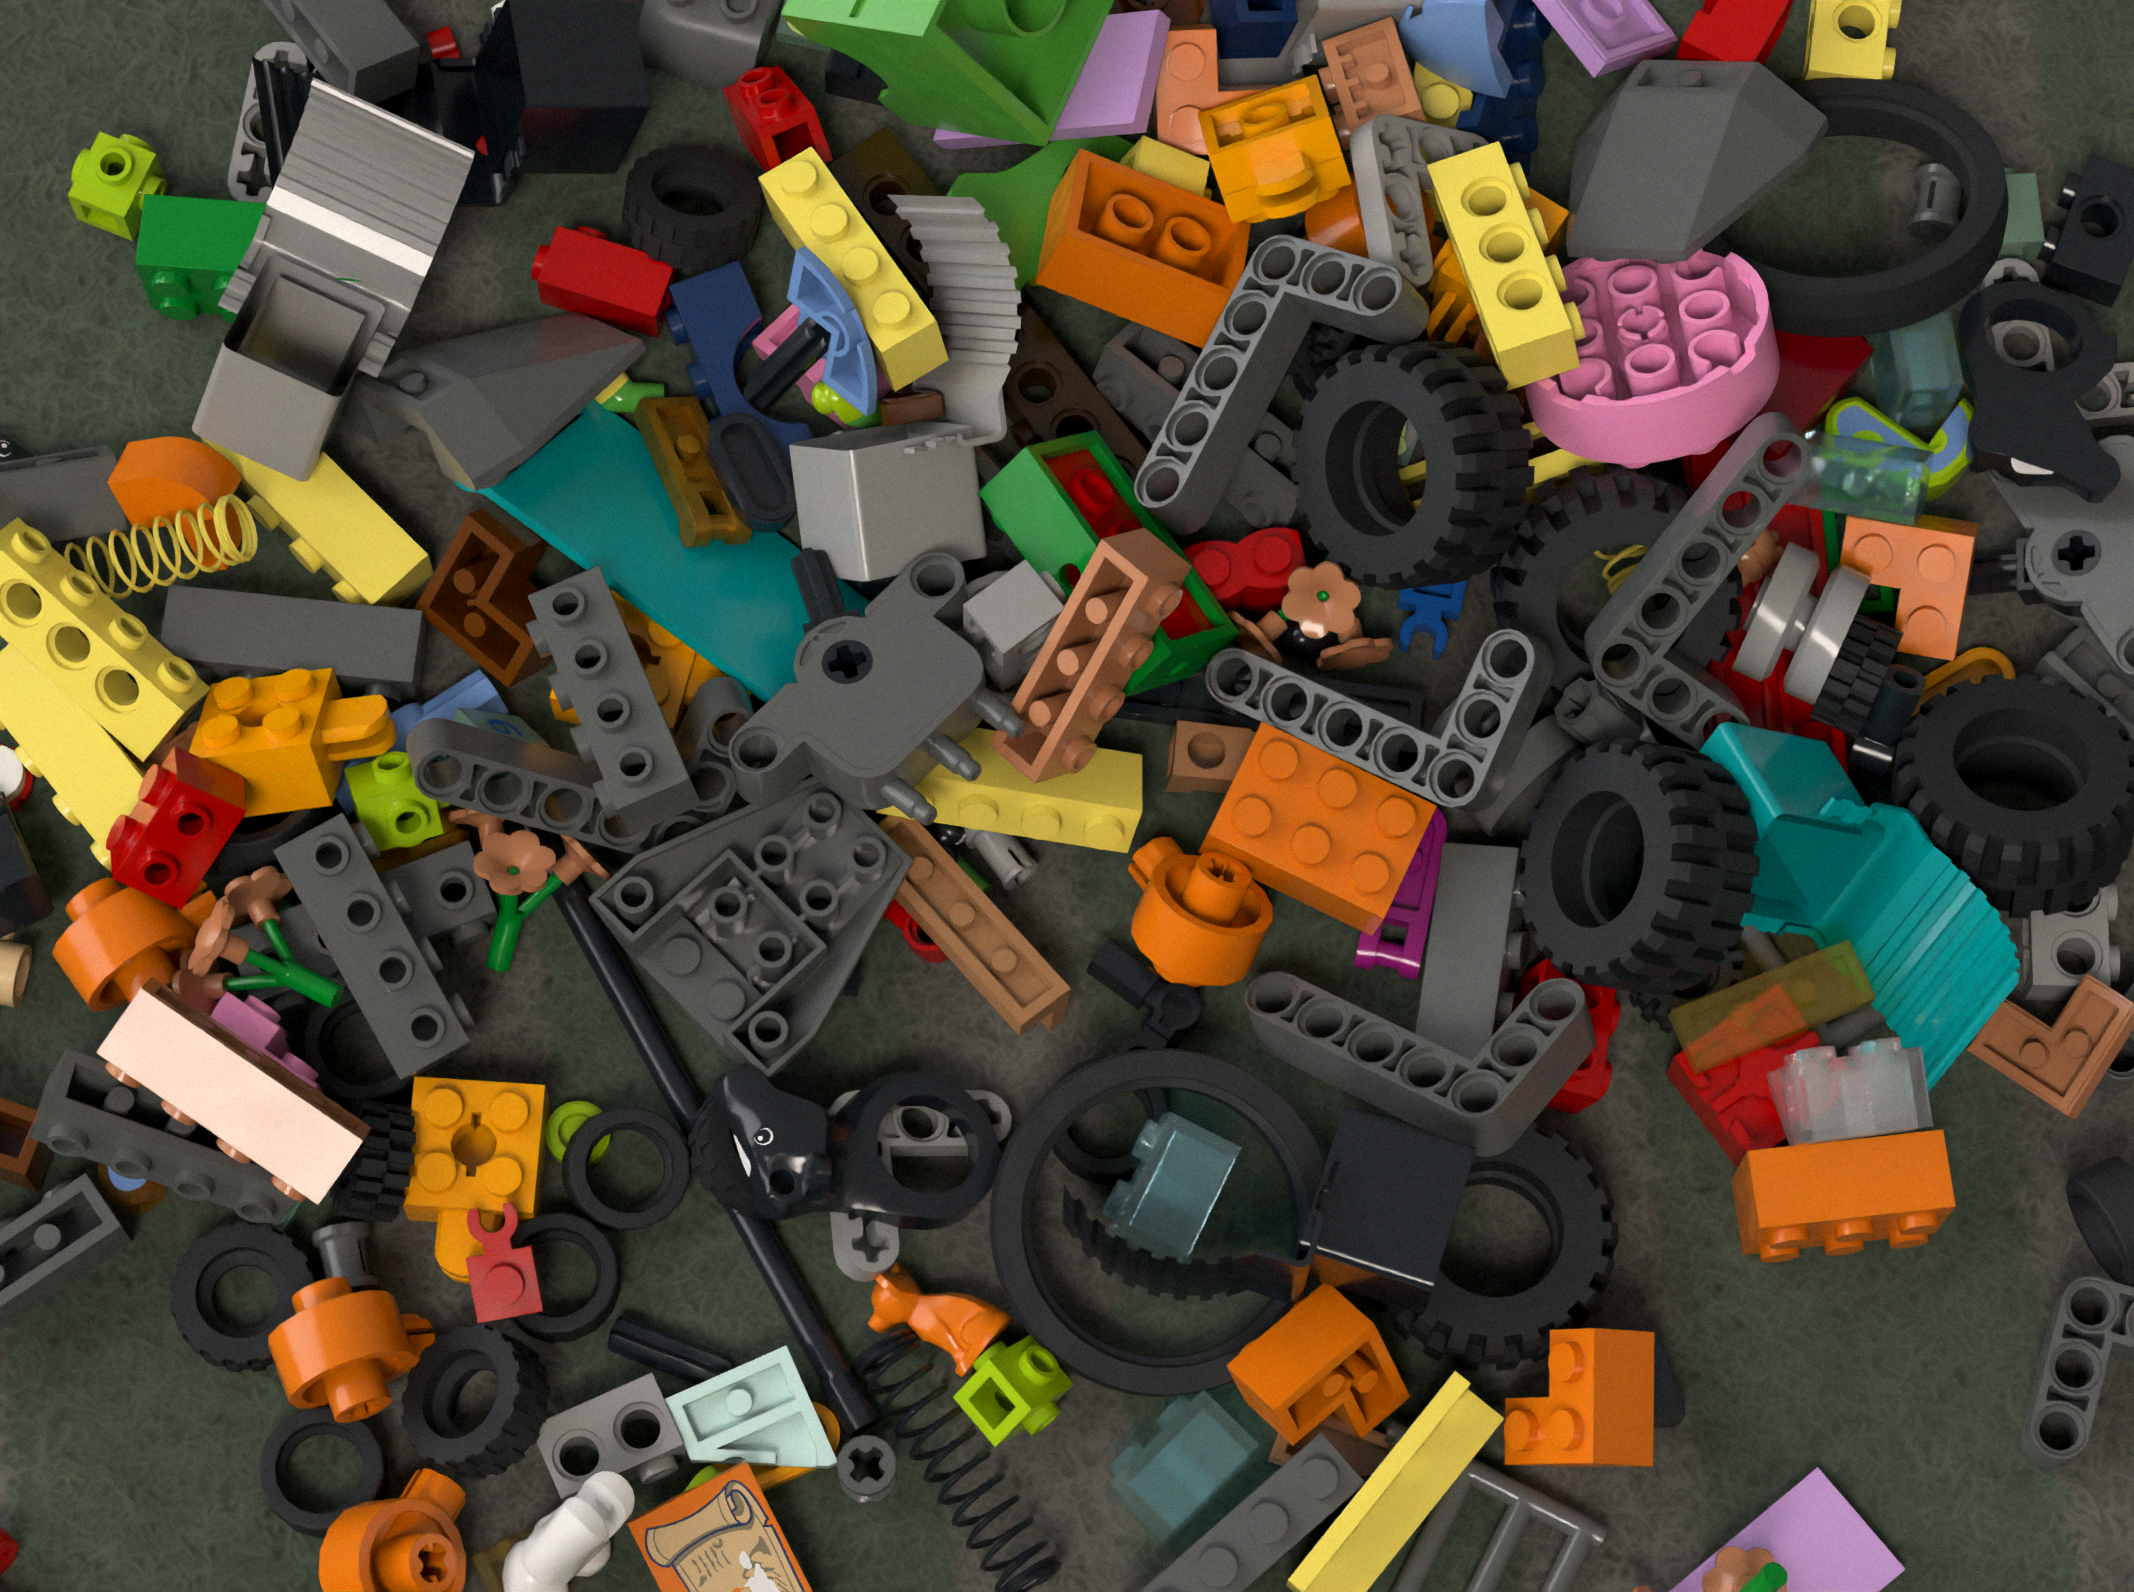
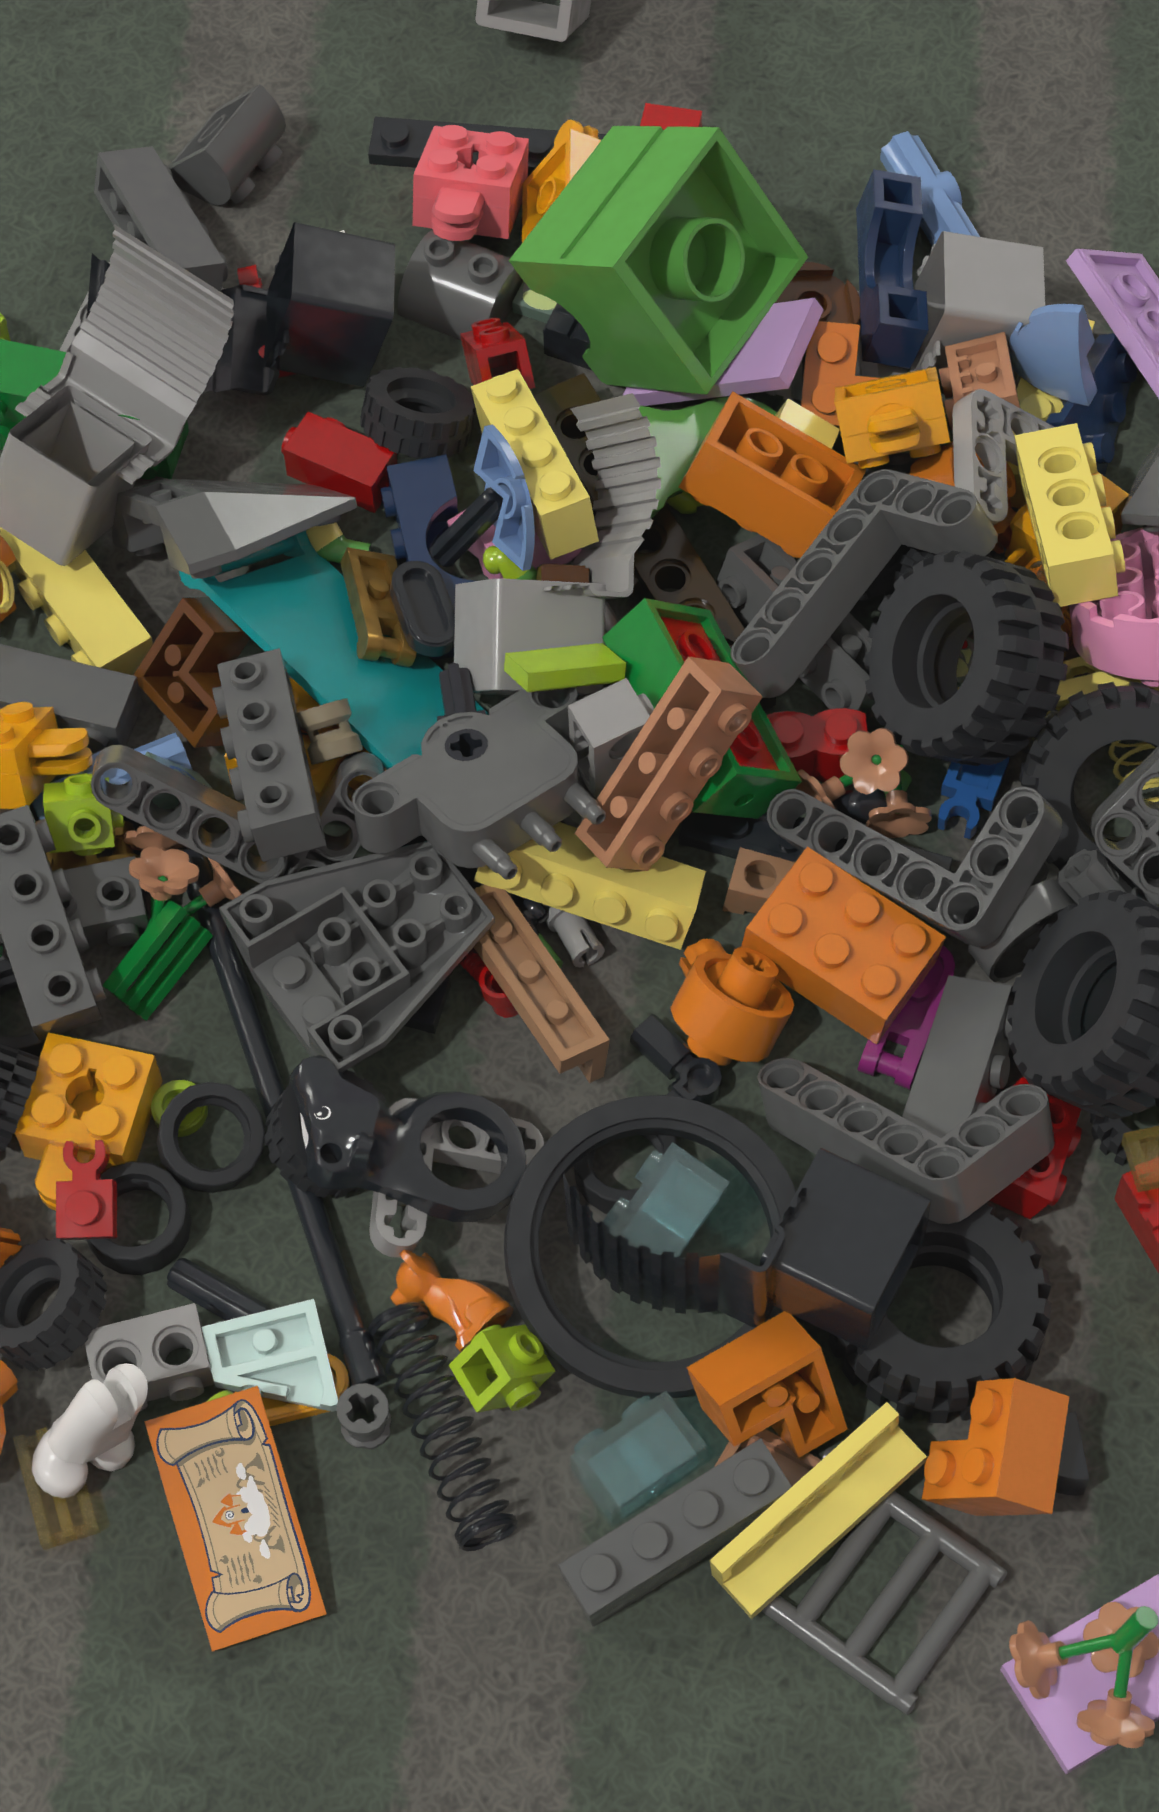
camera: 15 degrees right, 10 degrees down
(519, 961) = (163, 965): none -> green tile
(676, 658) = (331, 743): none -> dark tan wheel
(943, 542) = (564, 667): none -> lime tile

